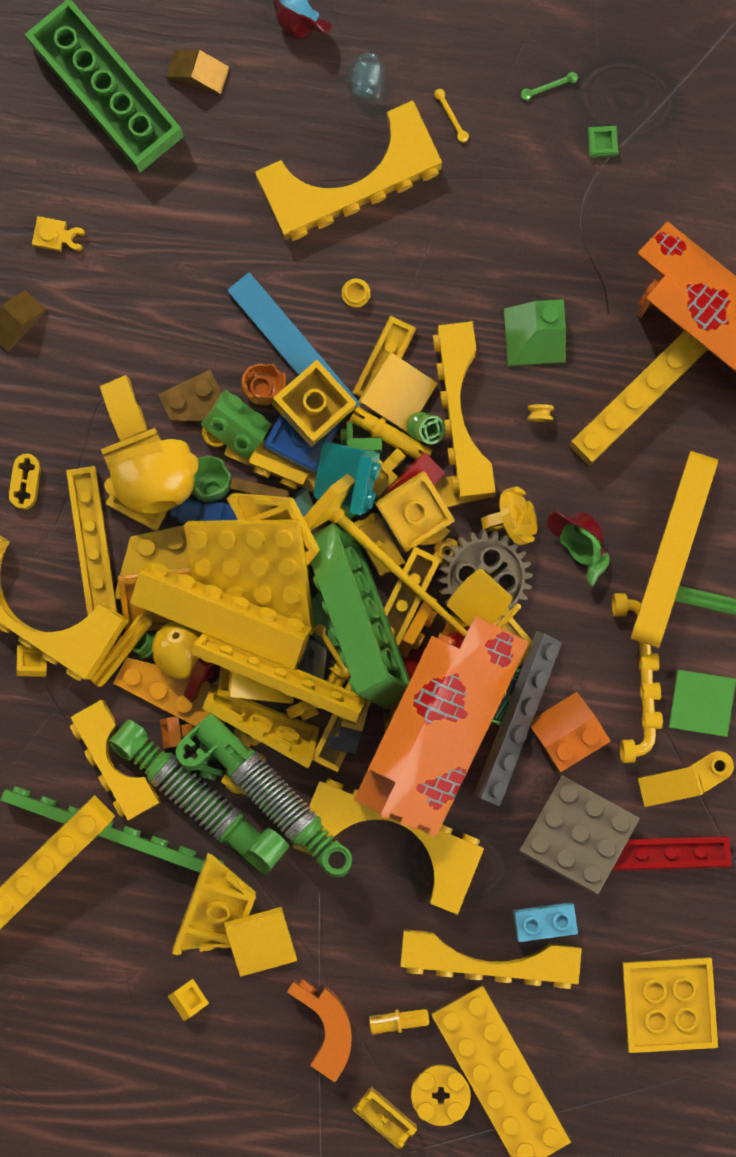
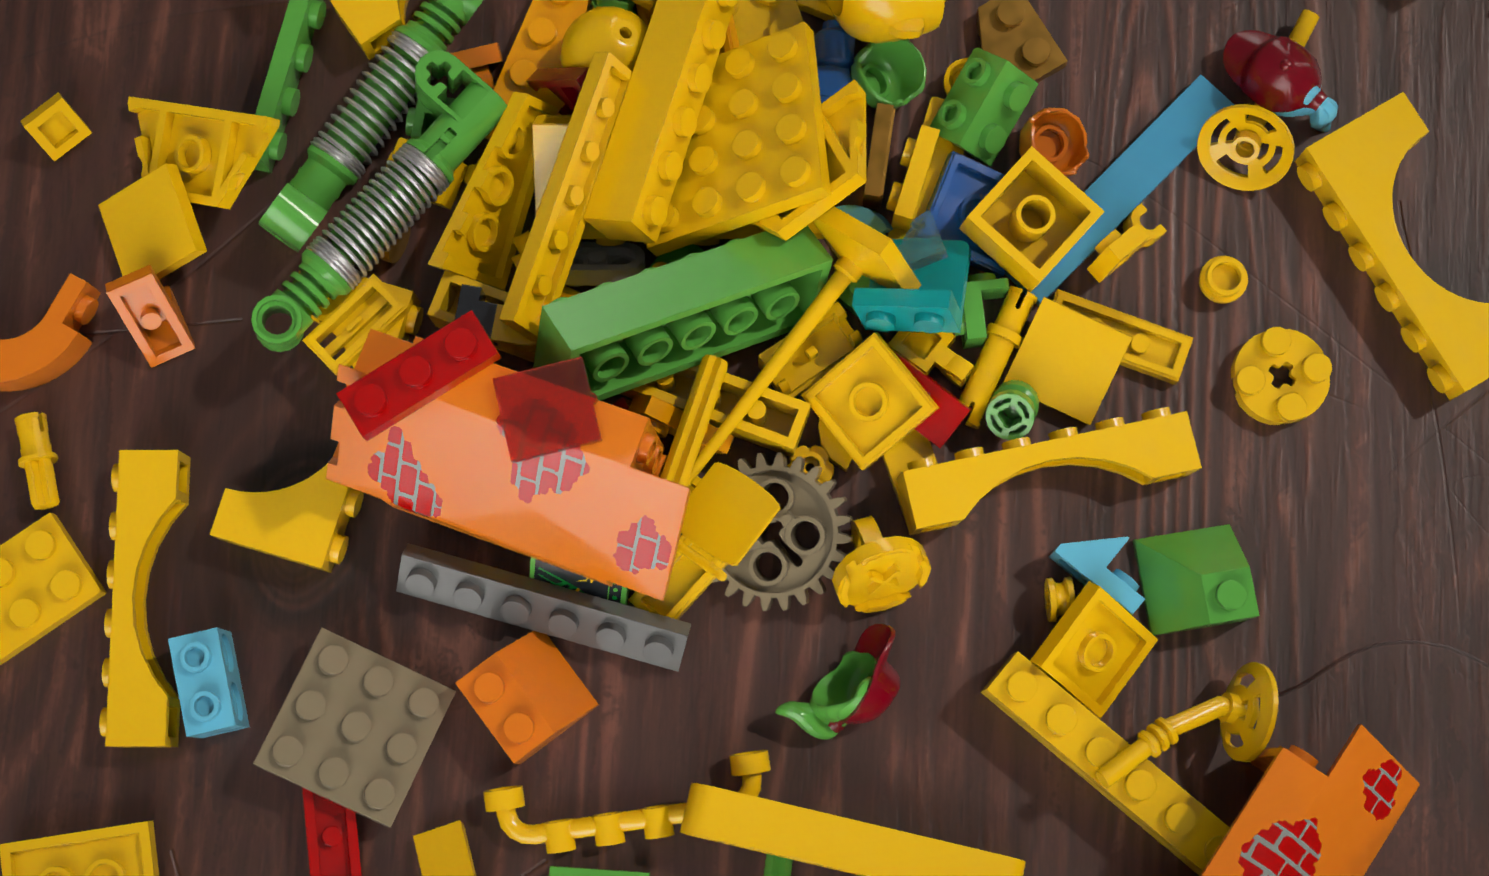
camera: 85 degrees right, 5 degrees down
(234, 244) = (1279, 76): none -> dark red hair
(270, 265) = (1251, 135): none -> yellow dish
(317, 945) = (151, 315): none -> orange slope
(321, 470) = (922, 242): none -> clear light blue tile
(333, 353) = (1118, 248): none -> yellow plate
(354, 836) = (343, 311): none -> yellow tile
(393, 767) = (418, 375): none -> red plate
(421, 694) = (547, 409): none -> clear red piece
(423, 616) = (695, 420): none -> yellow axle
(434, 263) = (1307, 367): none -> yellow plate
(520, 393) = (1088, 562): none -> medium azure slope
(573, 396) = (1094, 649): none -> yellow plate
(619, 319) = (1237, 715): none -> yellow dish

